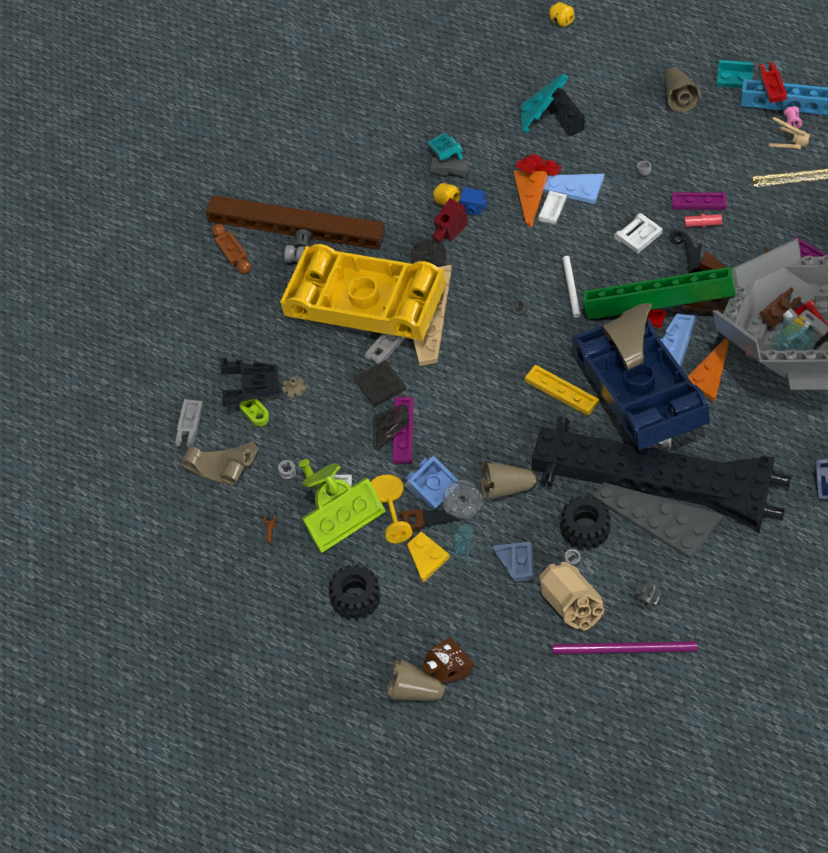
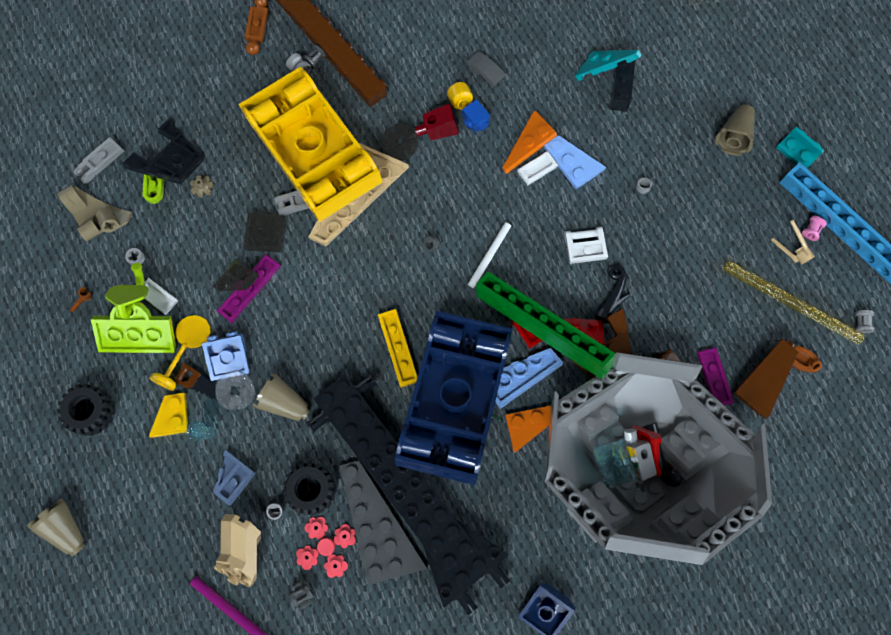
camera: 35 degrees right, 20 degrees up
(445, 147) = (493, 49): teal bracket -> none
(447, 662) = (97, 530): reddish brown torso -> none
(534, 163) = (556, 116): red plate -> none
(628, 334) = (473, 349): dark tan panel -> none
(633, 557) = (326, 547): none -> coral plant
(698, 201) = (664, 250): magenta tile -> none
(703, 220) = (650, 273): coral pin -> none
(772, 83) = (820, 186): red hinge -> none
(773, 312) = (632, 417): reddish brown hinge -> none

